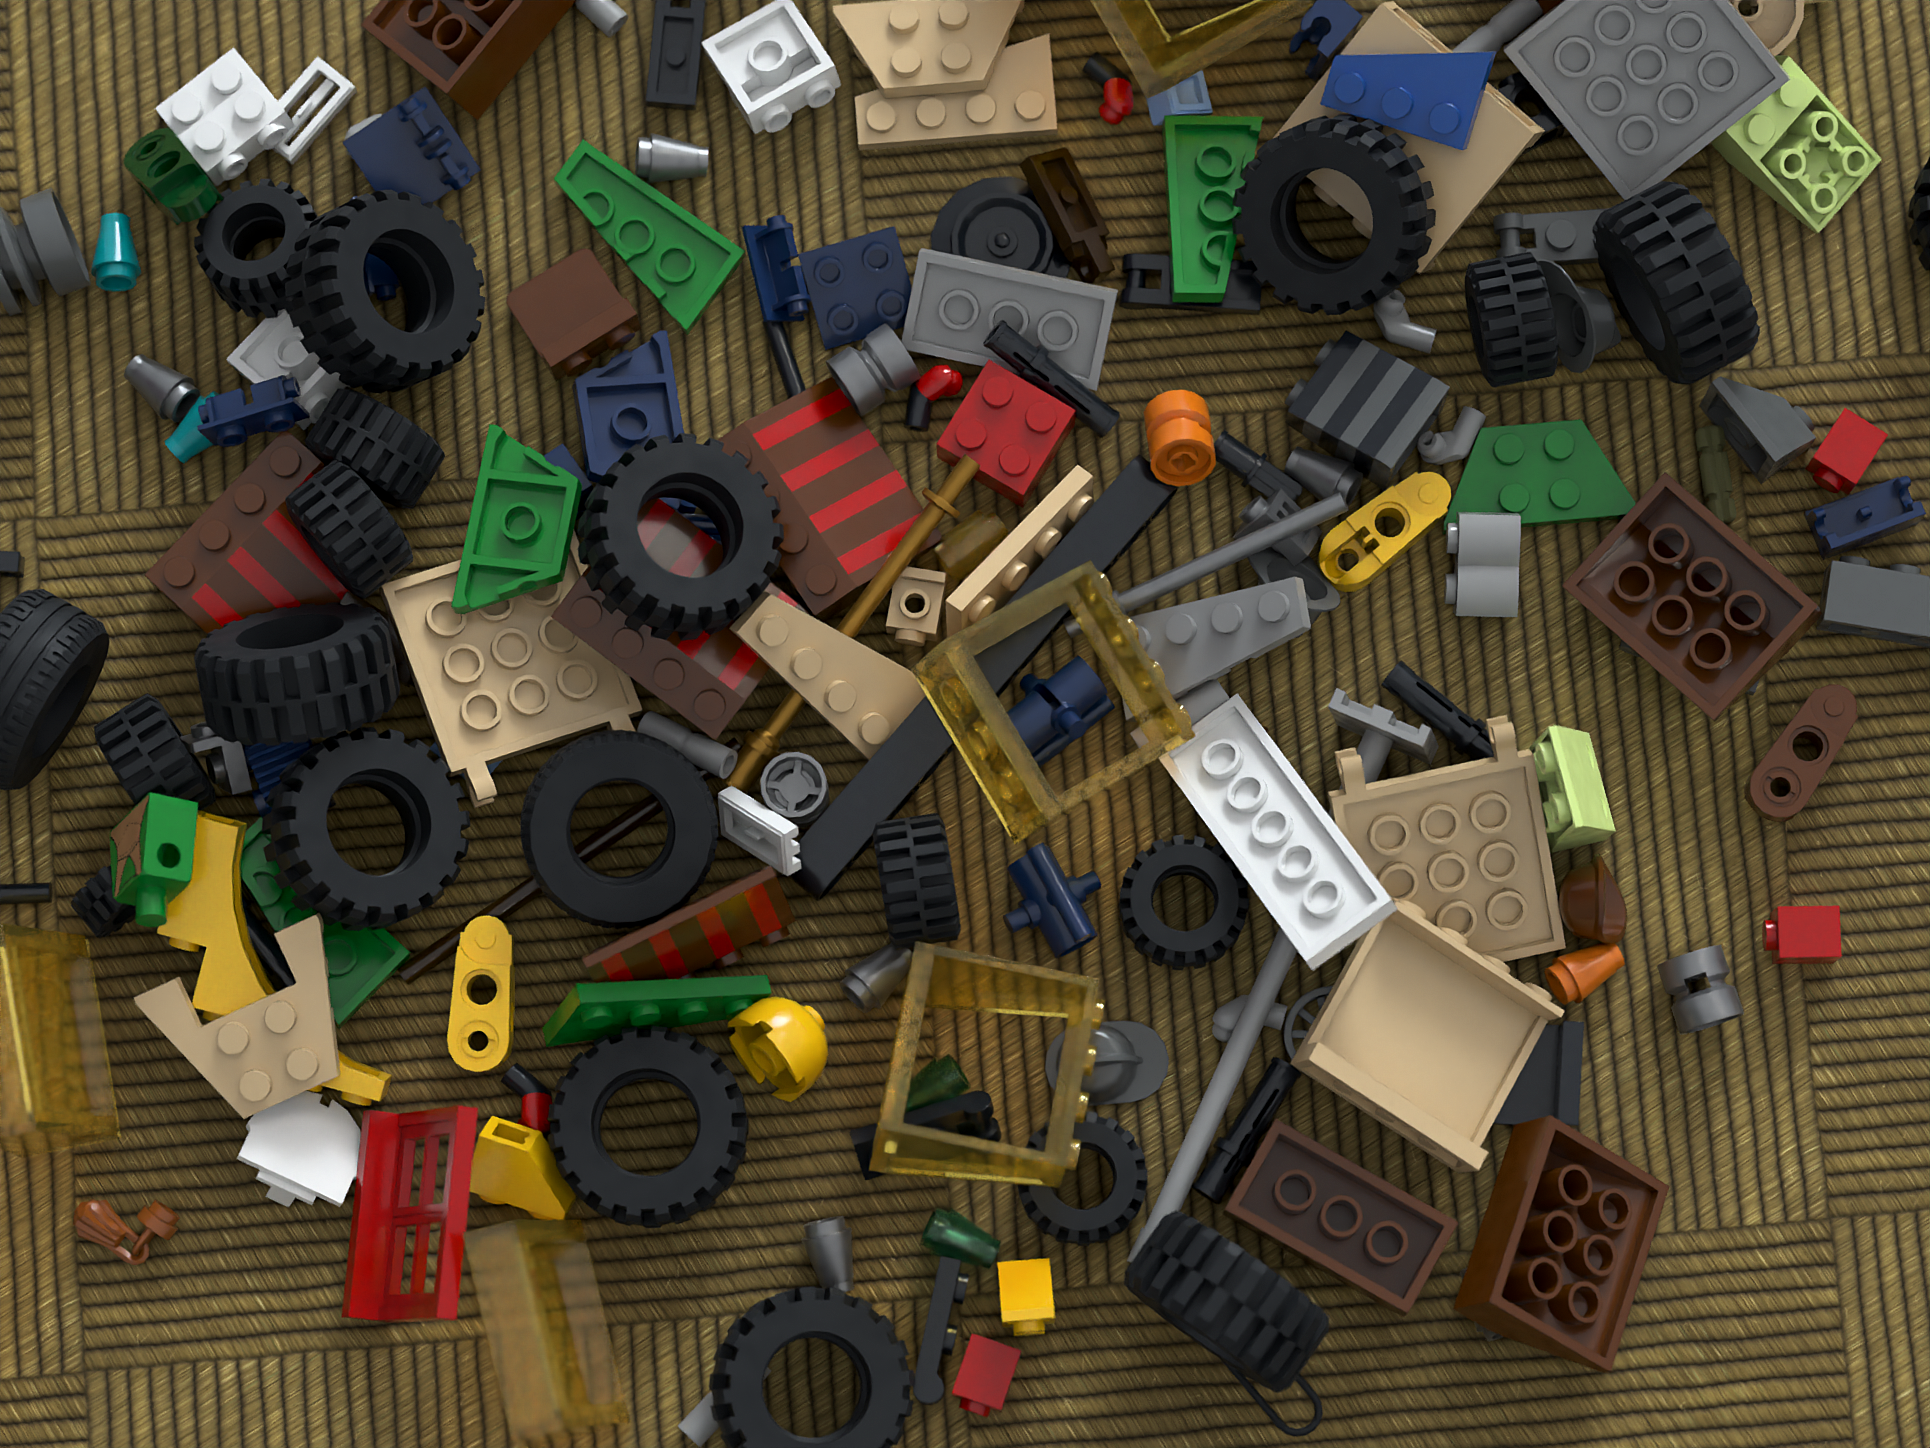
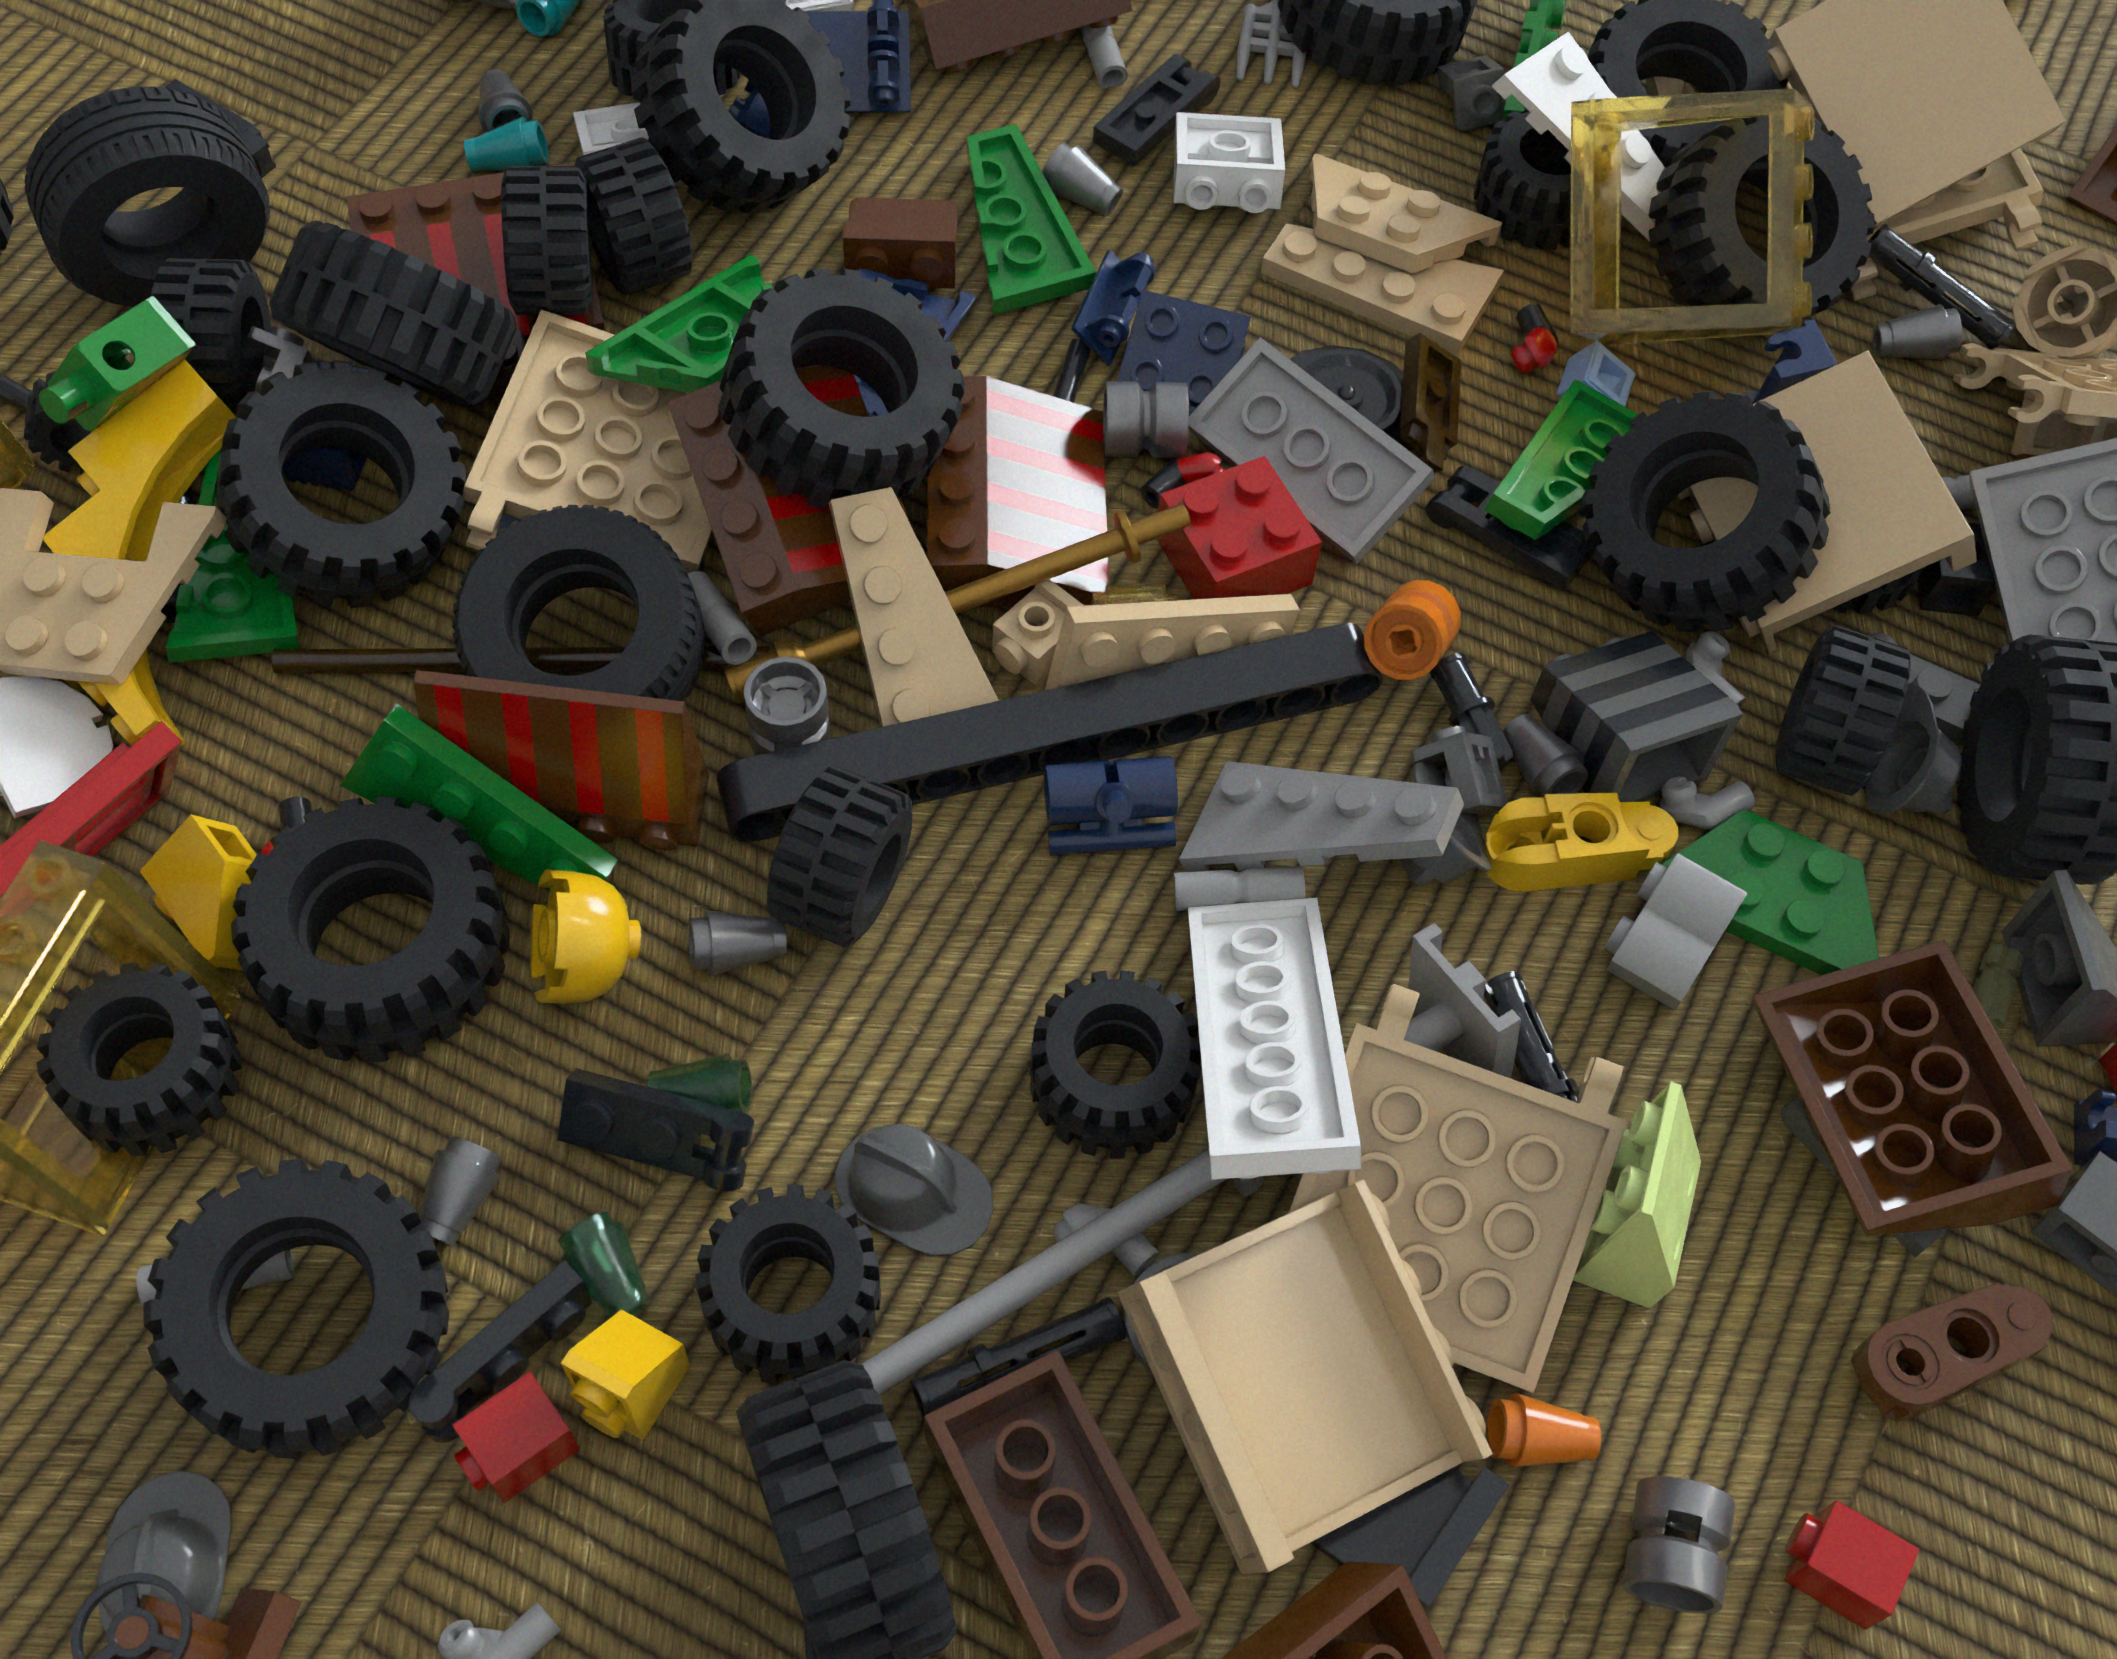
camera: 25 degrees right, 20 degrees down
(230, 420) = (545, 134): dark blue hinge -> none
(483, 951) = (301, 746): yellow piece -> none
(628, 1298) = (107, 1023): none -> black tyre
(759, 830) = (718, 728): white tile -> none
(983, 983) = (808, 984): clear yellow windscreen -> none
(988, 735) = (1096, 660): clear yellow windscreen -> none
(1048, 376) = (1292, 452): black pin -> none
(1051, 901) = (973, 978): dark blue pin -> none
(1222, 557) = (1241, 743): flat silver bar -> none
(1413, 93) = (1868, 444): blue wing -> none
(1593, 903) = (1596, 1357): reddish brown helmet -> none

